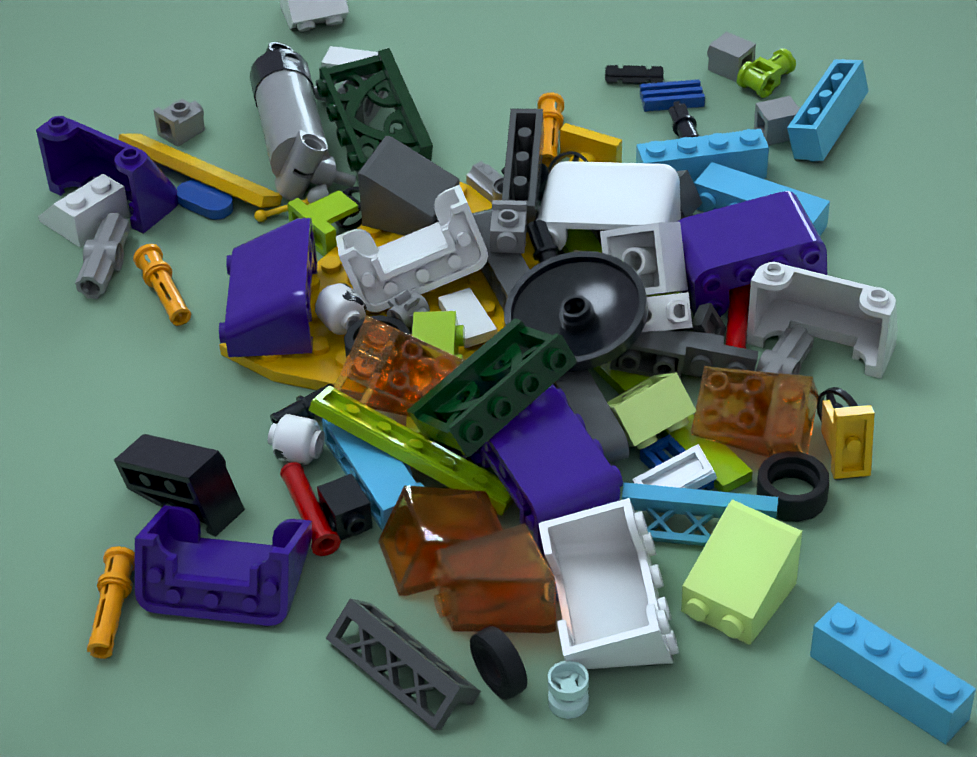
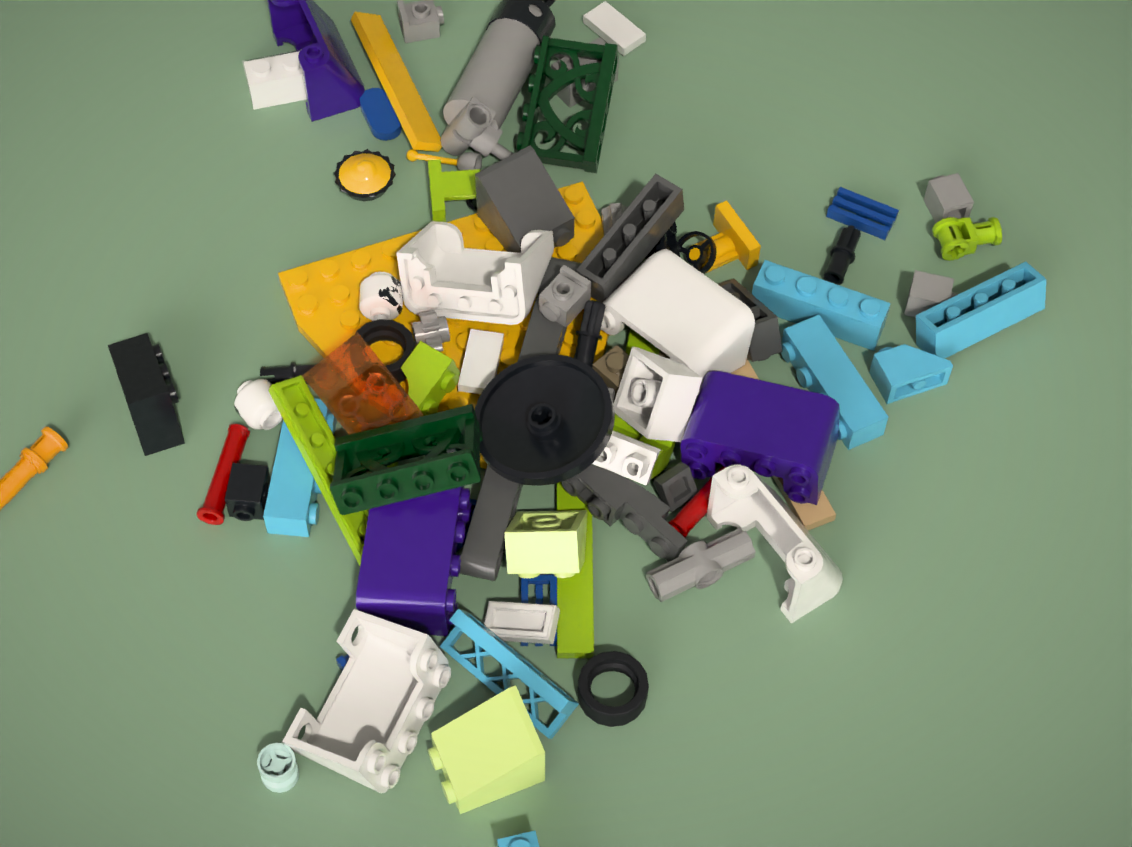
camera: 30 degrees right, 15 degrees up
(103, 255) = (256, 131): light grey piece -> none
(158, 276) = (283, 175): light orange pin -> none
(217, 577) = (111, 491): dark purple windscreen -> none
(230, 235) = (364, 175): none -> yellow piece
(271, 293) = (336, 248): dark purple windscreen -> none
(411, 652) = (189, 656): dark grey fence -> none
(429, 521) = (296, 568): clear orange slope -> none
(496, 583) = (292, 638): clear orange slope -> none
(498, 662) = (240, 712): black tyre -> none
(553, 123) = (725, 187): light orange pin -> none
(634, 74) = (847, 171): black axle -> none
(756, 410) = (633, 602): clear orange slope -> none
(811, 169) = (907, 372): none -> medium azure slope
(846, 433) = (690, 672): yellow piece -> none

